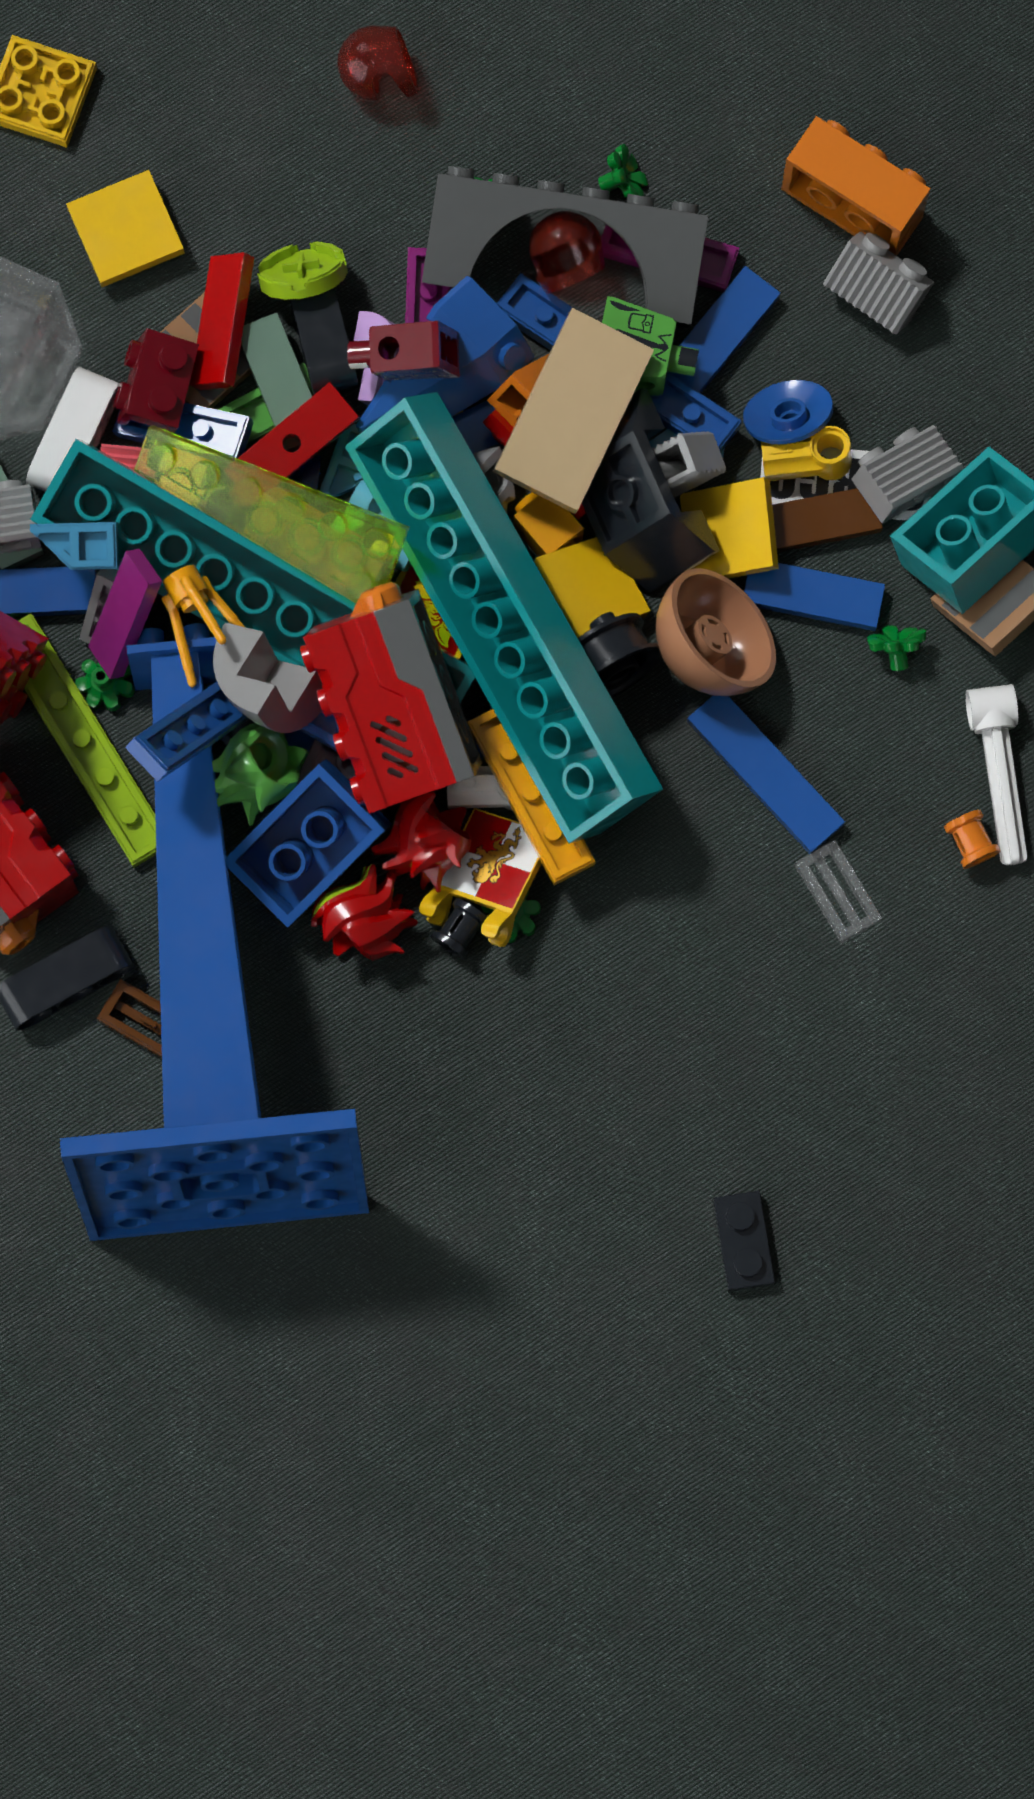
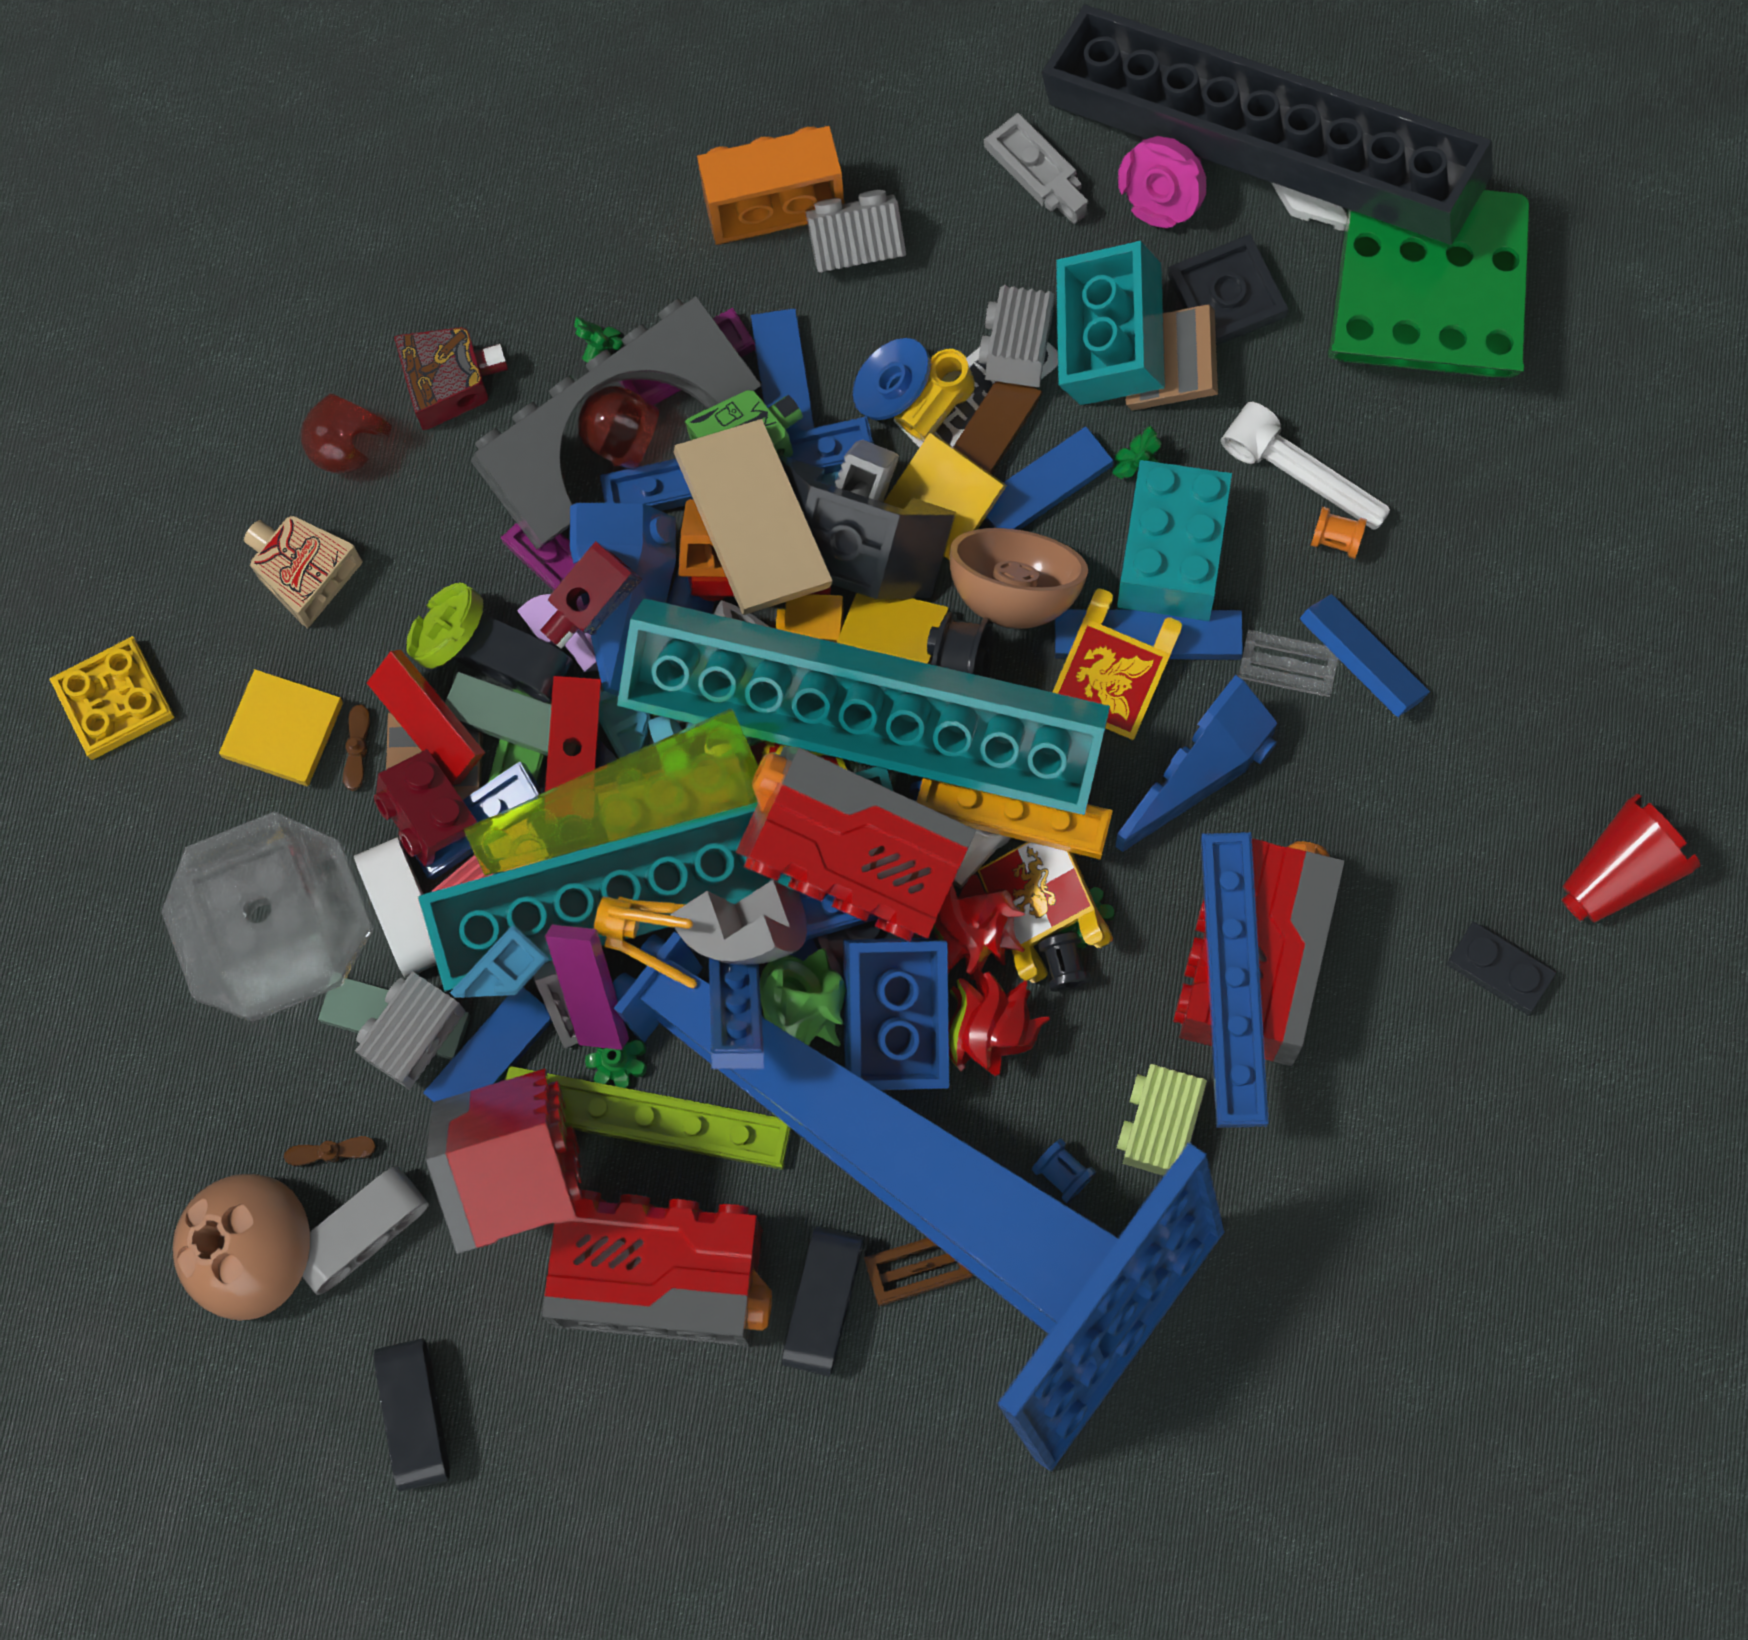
camera: 40 degrees left, 5 degrees down
(161, 293) = (356, 747): none -> reddish brown piece
(254, 128) = (301, 565): none -> tan torso
(307, 1061) = (1063, 1171): none -> blue bush
(406, 1098) = (1164, 1118): none -> yellowish green brick
(494, 92) = (446, 373): none -> torso
(540, 1052) = (1234, 980): none -> blue tile
(593, 1053) = (1293, 917): none -> red piece
(708, 771) = (1115, 667): none -> flag
(724, 898) = (1227, 742): none -> blue wedge
(850, 725) = (1174, 540): none -> teal brick
(892, 939) = (1364, 655): none -> blue tile
(901, 1262) = (1627, 863): none -> red cone

